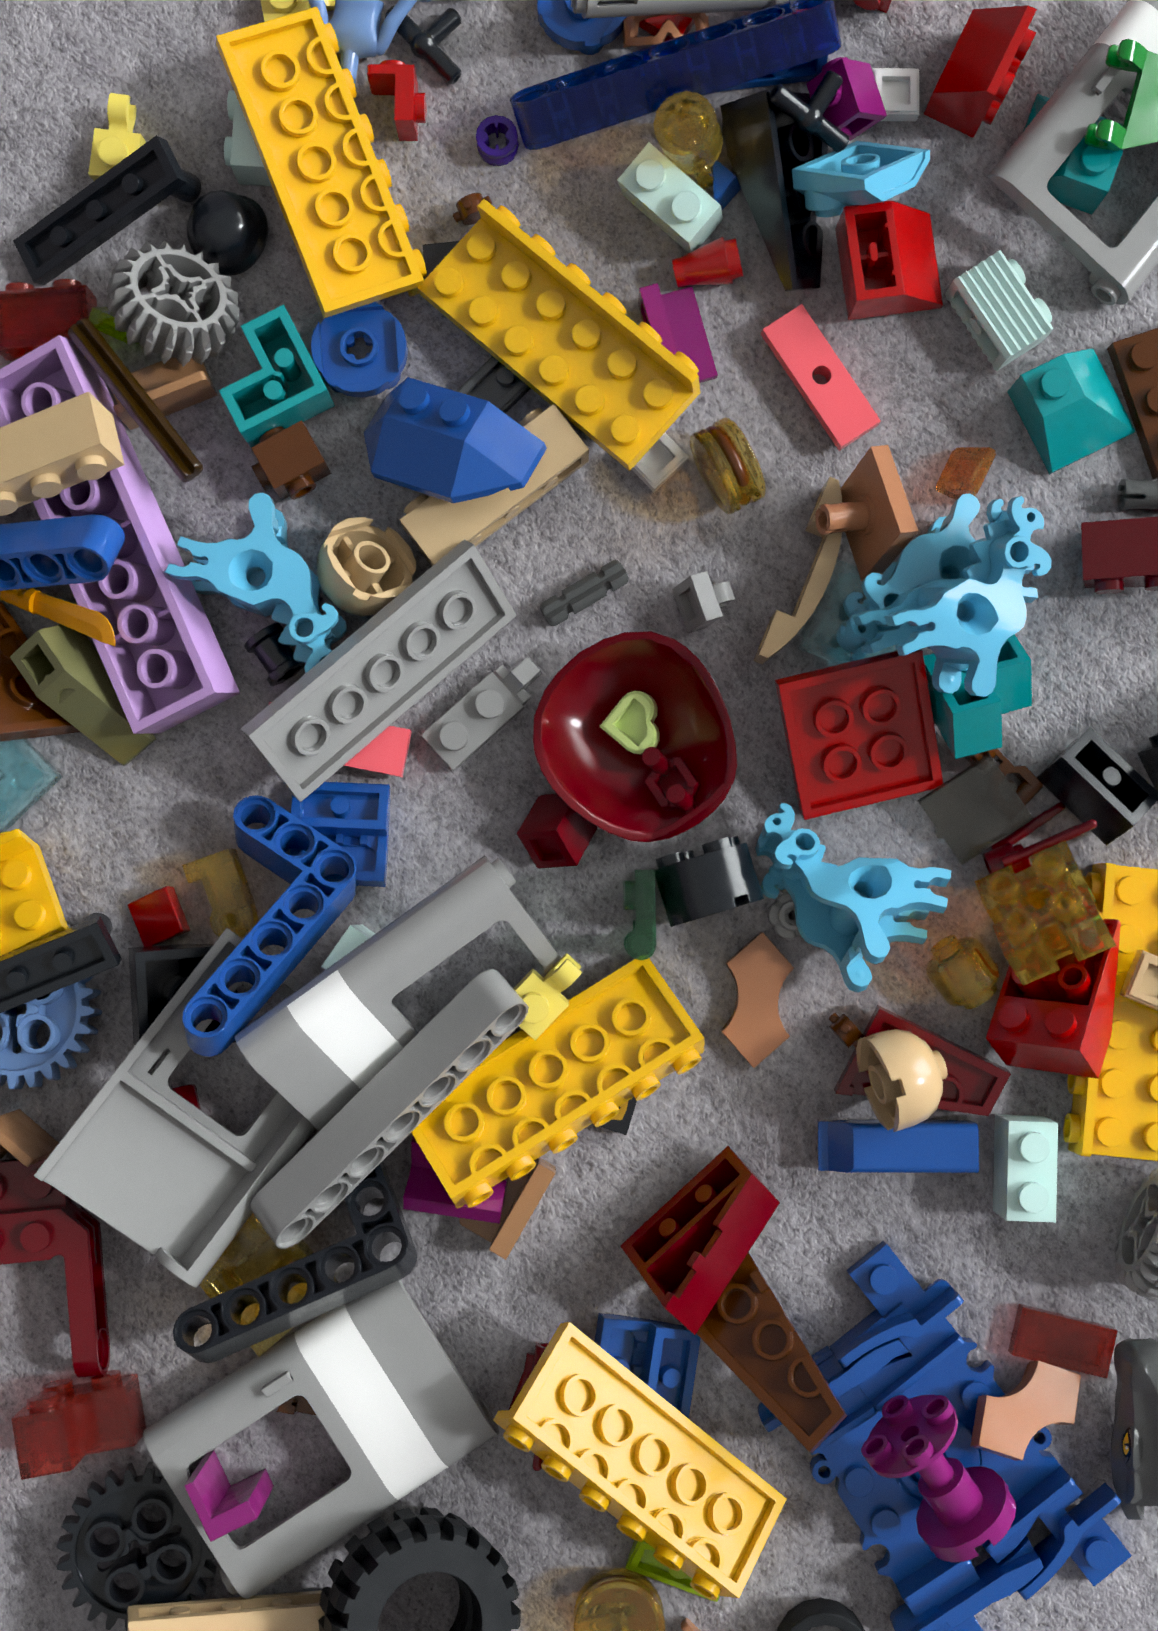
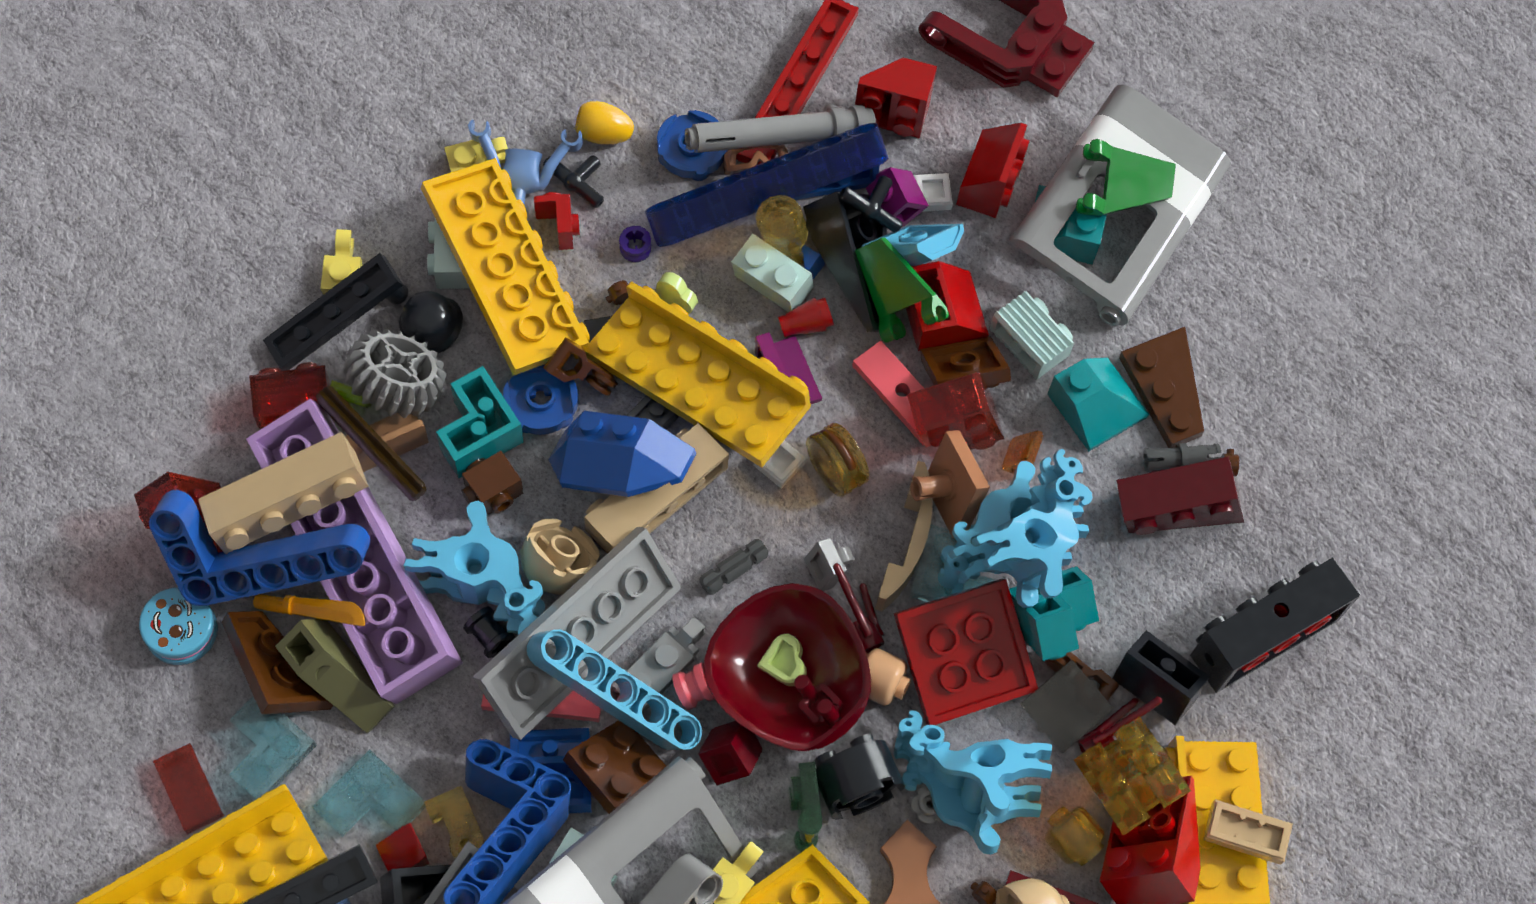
camera: 10 degrees left, 20 degrees down
(121, 833) = (366, 787): none -> clear light blue plate
(399, 743) = (597, 686): none -> medium azure beam
(419, 840) = (614, 764): none -> reddish brown plate
(435, 330) = (602, 378): none -> reddish brown piece
(515, 746) = (692, 686): none -> coral wheel
(541, 215) = (673, 289): none -> yellowish green tile
(738, 694) = (867, 628): none -> dark red plant
(757, 753) = (887, 677): none -> light nougat head
(829, 235) = (895, 287): none -> green flag
(887, 411) = (957, 405): none -> clear red brick
(907, 349) = (964, 358): none -> reddish brown plate

